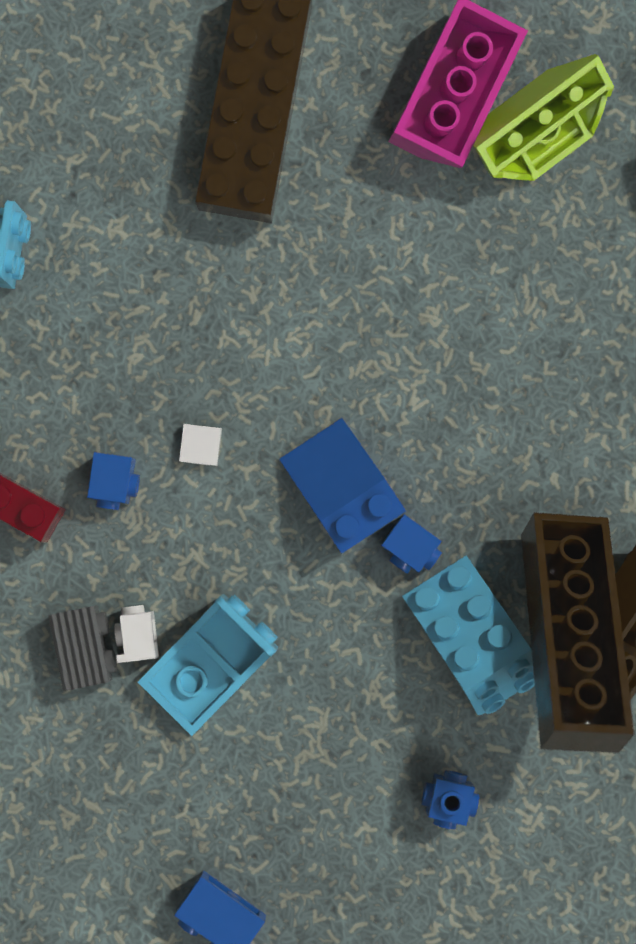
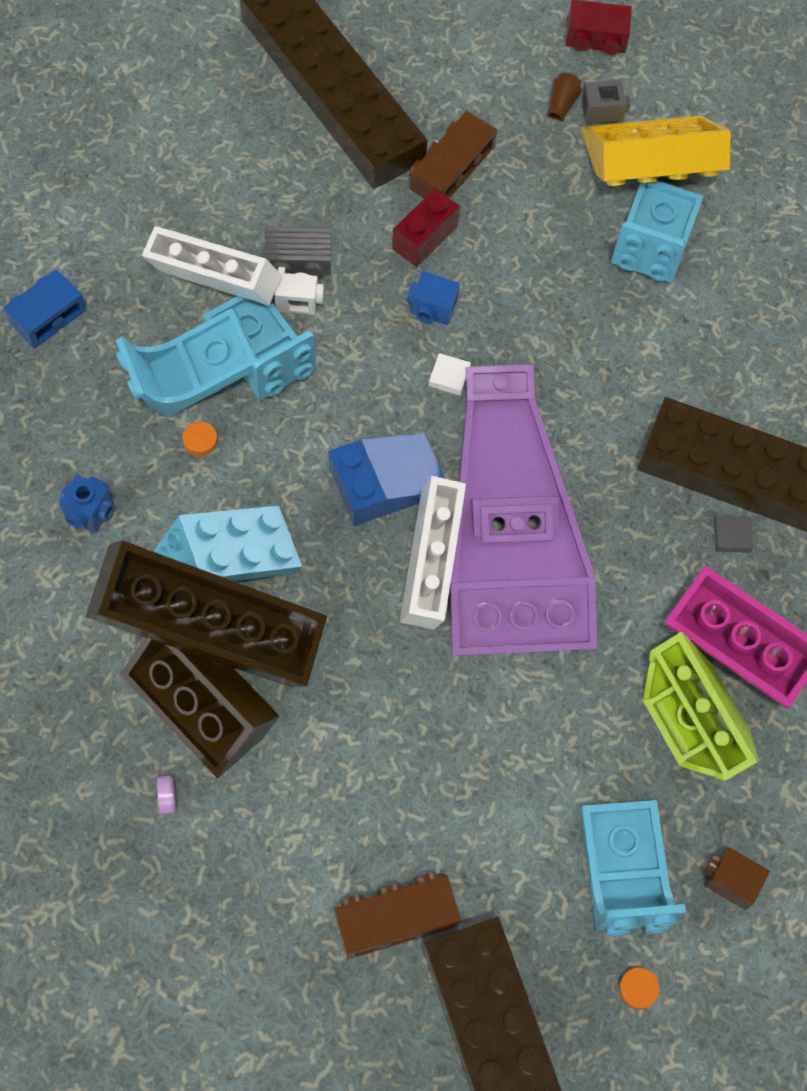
camera: 95 degrees right, 20 degrees down
(135, 738) = (212, 265): none -> white brick
(263, 734) = (189, 366): none -> medium azure bracket
(328, 111) = (733, 534): none -> dark grey tile
(339, 700) = (200, 438): none -> orange tile
(411, 546) = (322, 519): blue brick -> none
(433, 419) = (433, 553): none -> white brick
(438, 322) = (516, 583): none -> medium lavender wing

